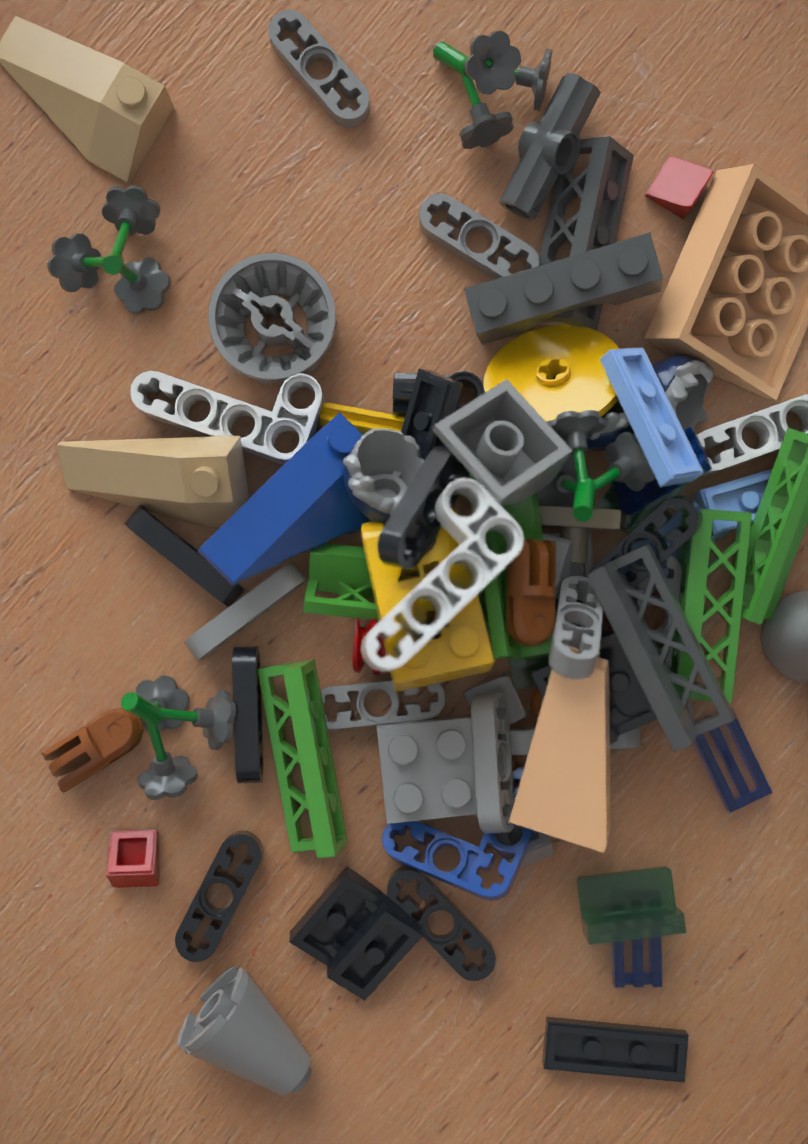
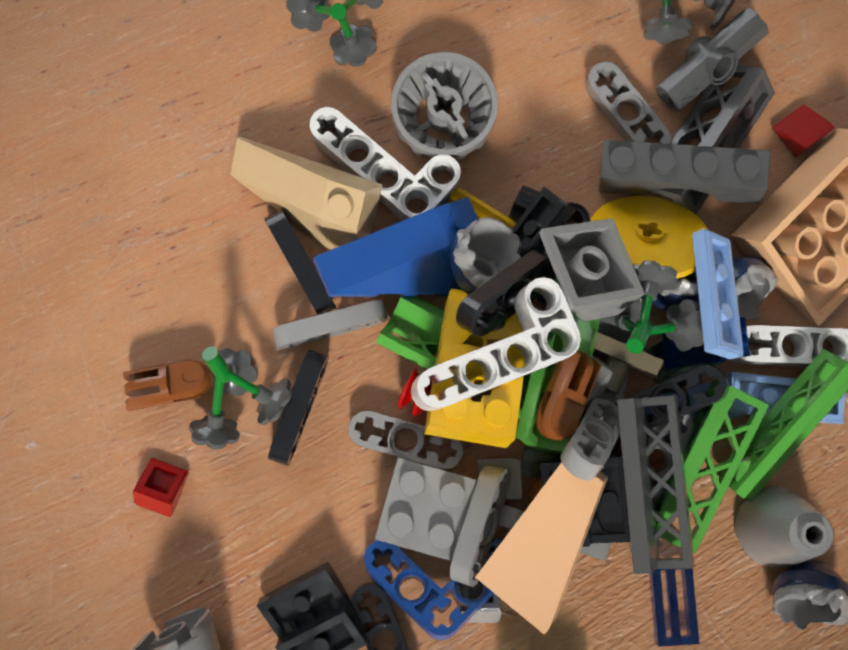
camera: 25 degrees right, 5 degrees down
(215, 931) = (185, 555): black beam -> none
(312, 754) = (337, 460): bright green fence -> none

